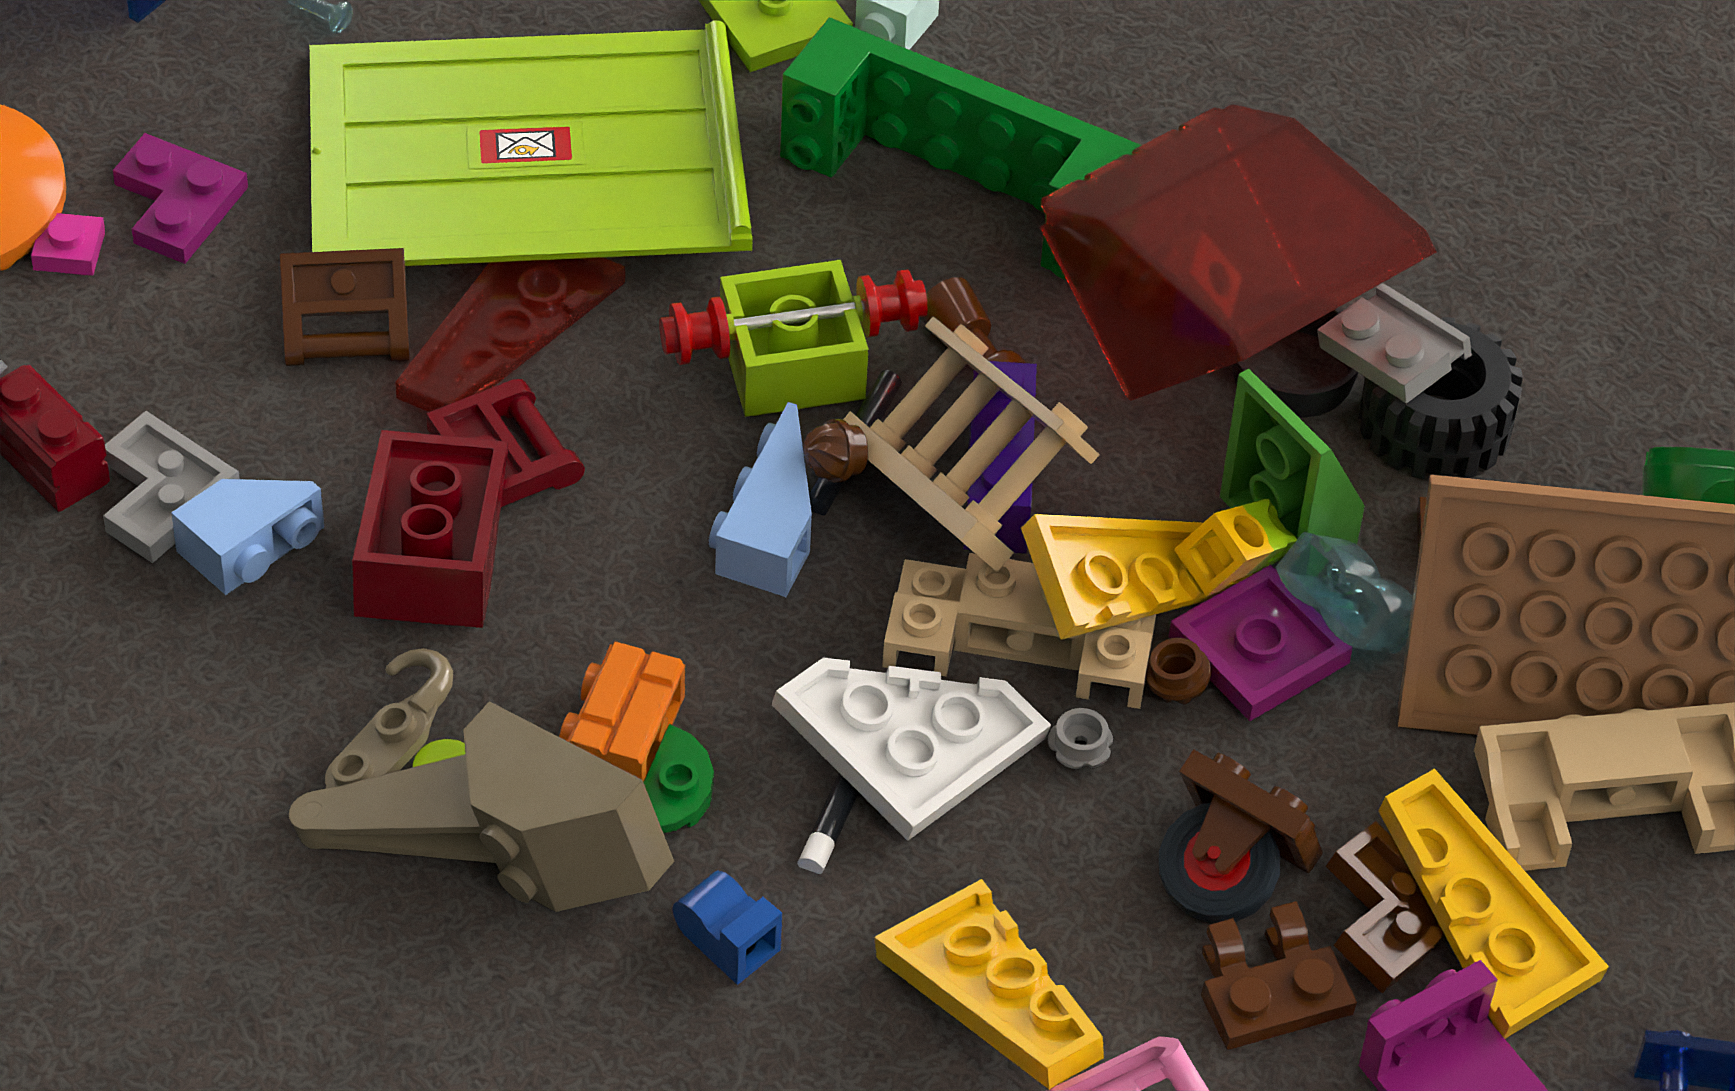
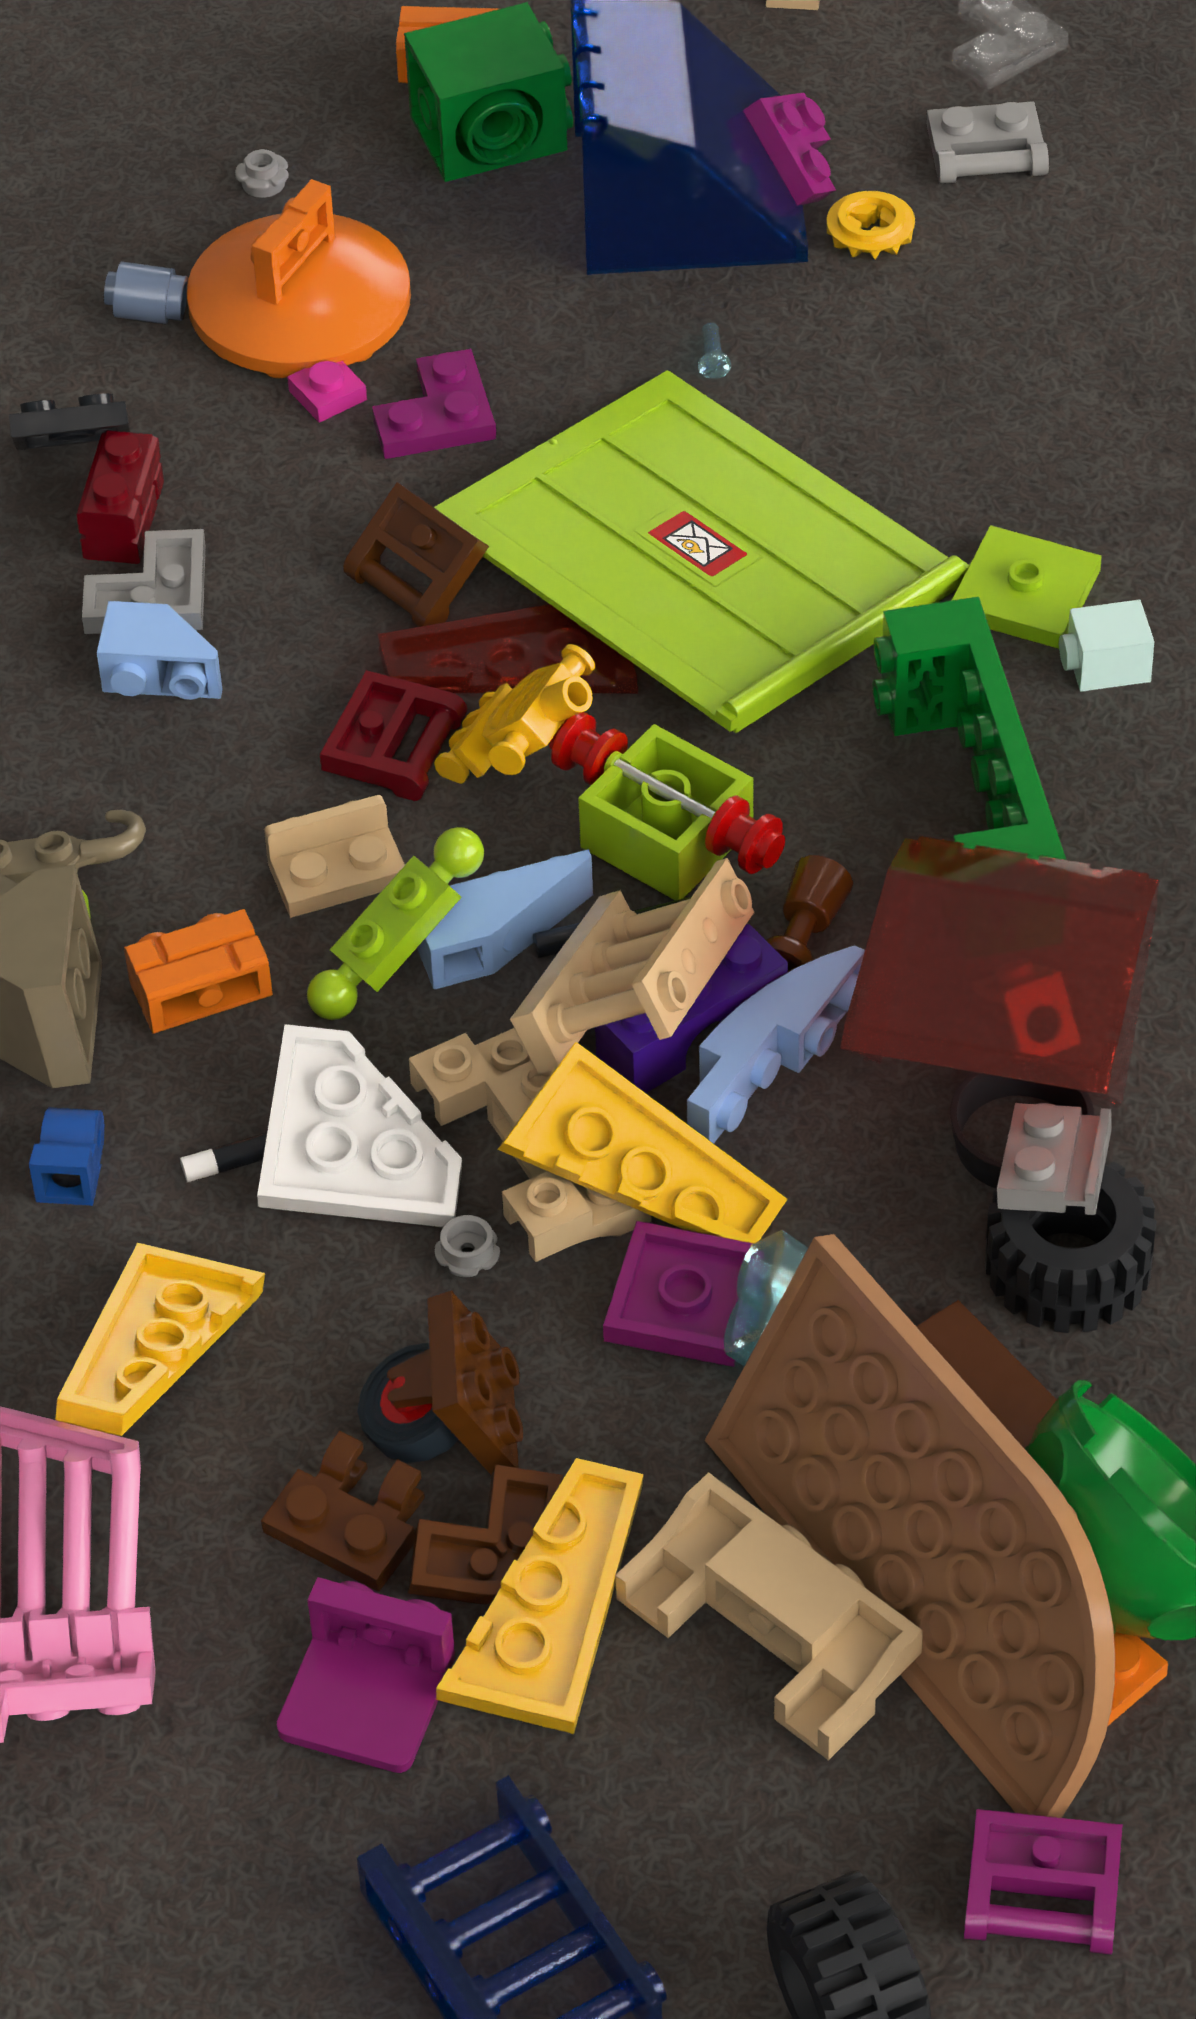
camera: 55 degrees right, 0 degrees up
(429, 529) = (249, 742): dark red slope -> none
(594, 564) = (332, 855): none -> tan bracket
(611, 331) = (518, 719): none -> yellow piece
(680, 780) = (172, 1045): green plate -> none
(737, 561) = (395, 923): none -> lime plate
(836, 450) = (561, 903): reddish brown plate -> none
(1068, 477) = (770, 1029): none -> light blue slope
(1178, 670) = (589, 1257): reddish brown plate -> none
(1234, 545) = (741, 1201): yellow leg -> none
(1284, 461) = (854, 1176): bright green slope -> none

